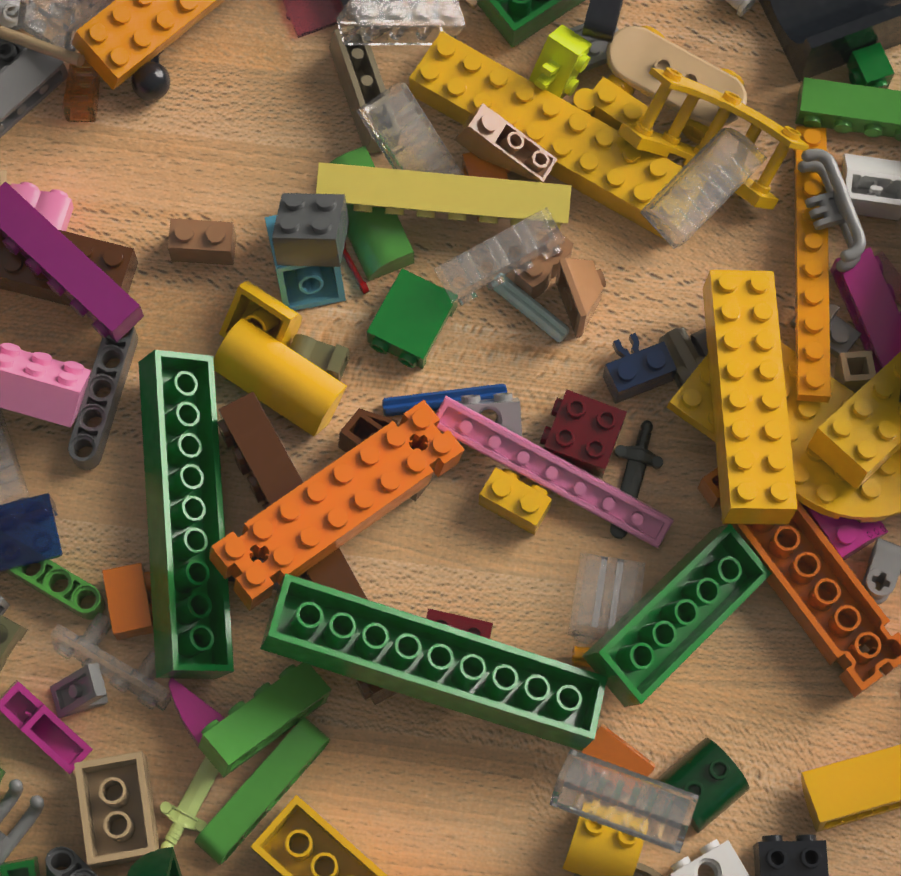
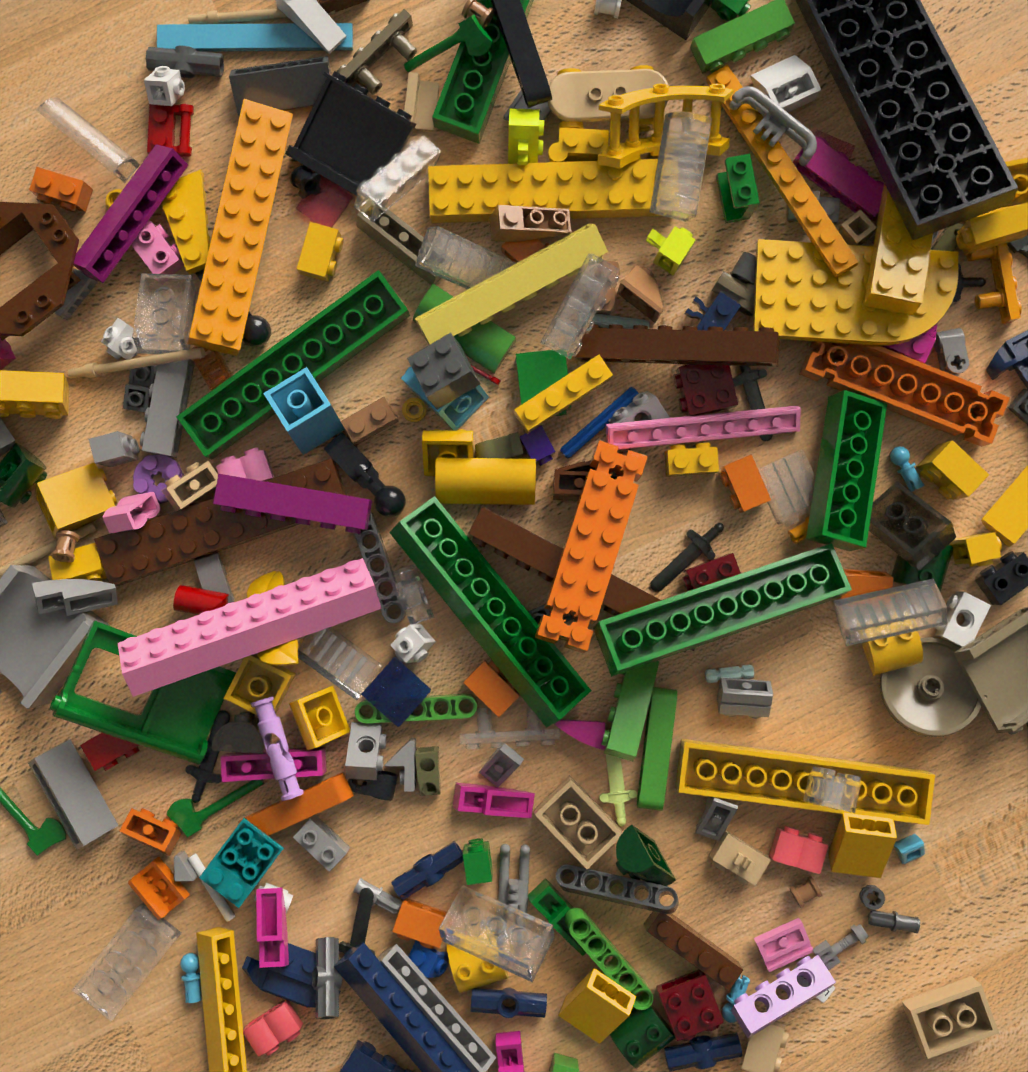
camera: 30 degrees left, 15 degrees up
(79, 495) = (412, 643): none -> white brick
(116, 446) = (413, 594): none -> clear brick
(140, 184) = (304, 411): none -> medium azure slope
(156, 284) = (388, 499): none -> black beam
(163, 137) = (319, 345): none -> green brick
(253, 254) = (414, 402): none -> yellow plate
(272, 48) = (319, 252): none -> yellow brick
(360, 379) = (538, 446): none -> dark purple brick
(399, 796) = (744, 697): none -> light grey brick
(402, 762) = (735, 672): none -> light aqua axle
(421, 335) = (563, 394): none -> yellow brick
(462, 600) = (699, 545): none -> pearl dark grey sword
(558, 561) = (744, 484): none -> orange brick
(580, 366) = (682, 346): none -> reddish brown brick
(641, 268) = (671, 249): none -> neon yellow brick
(709, 719) = (910, 526): none -> clear smoke brick
(749, 398) = (807, 297): yellow brick -> none
(753, 648) = (901, 456): none -> medium azure pin
(755, 239) = (738, 189): none -> green panel
(772, 800) = (976, 549): none -> yellow brick
(799, 694) = (952, 471): none -> yellow brick

